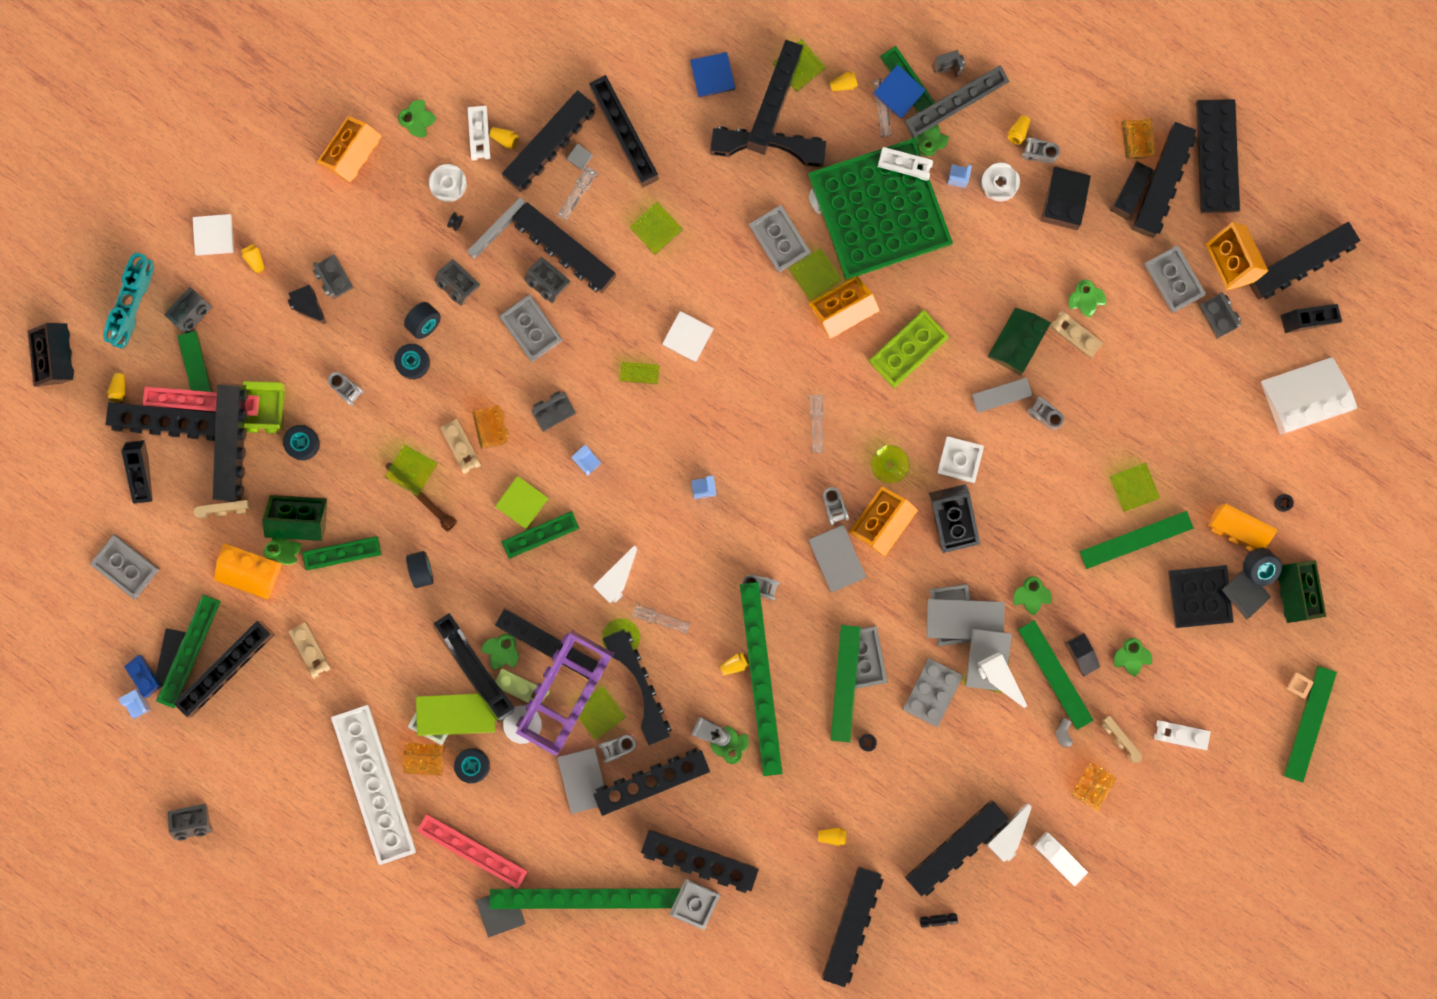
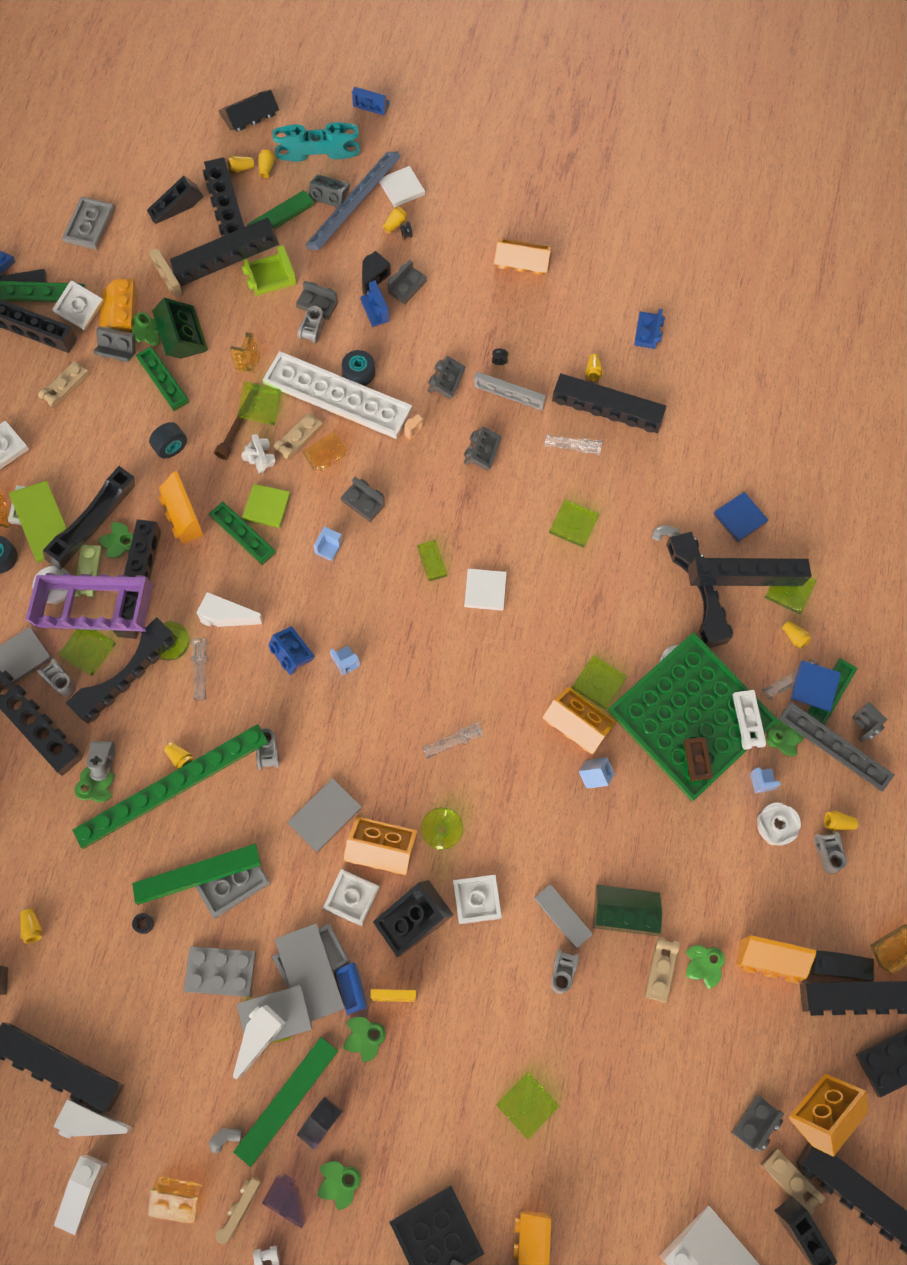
camera: 65 degrees right, 15 degrees down
(94, 224) = (370, 101): none -> blue bracket
(128, 362) = (266, 163): none -> yellow cone
(190, 400) = (250, 215): coral plate -> none
(212, 290) = (352, 201): none -> sand blue tile
(227, 608) = (78, 305): none -> white plate
(271, 252) = (406, 230): none -> black bush
(289, 586) = (115, 344): none -> dark grey bracket
(301, 436) = (248, 310): black wheel -> none
(316, 371) = (317, 296): none -> dark grey bracket
(348, 318) = (375, 305): none -> blue bracket
(361, 468) = (247, 356): none -> clear yellow bracket
(419, 118) = (576, 298): bright green plate -> none
(422, 320) = (398, 361): black wheel -> none
(431, 392) = (337, 394): none -> white plate
(447, 183) = (531, 340): white tile -> none
(466, 492) = (255, 454): none -> white hips
(479, 132) = (586, 346): white plate -> none
(483, 65) = (648, 329): none -> blue bracket
(496, 334) = (413, 426): none -> light nougat plate
(496, 583) = (179, 509): none -> light orange slope
(530, 328) = (432, 453): light grey tile -> none
(564, 247) = (518, 452): black brick -> none
(579, 157) = (608, 434): light grey tile -> none
(624, 131) = (648, 459): black brick -> none
(675, 532) = (290, 650): none -> blue bracket
(697, 150) = (664, 530): none -> light grey arm
(779, 239) = (617, 634): light grey plate -> none
(835, 507) = (375, 790): light grey piece -> none
(895, 313) = (596, 772): none -> light blue panel
(908, 349) = (568, 801): lime tile -> none
(915, 562) = (351, 897): none -> white tile
(922, 223) = (697, 759): none -> reddish brown plate
(991, 590) = (351, 989): none -> blue tile
(1012, 557) = (393, 995): none -> yellow tile
(1066, 198) = (796, 898): black slope -> none
(1106, 241) = (775, 958): none -> light orange slope
(1128, 701) = (286, 1200): none -> slope
(1136, 540) = (471, 1133): green tile -> none
(1174, 279) = (771, 1054): light grey plate -> none
(1269, 309) = (792, 1180): none -> tan plate

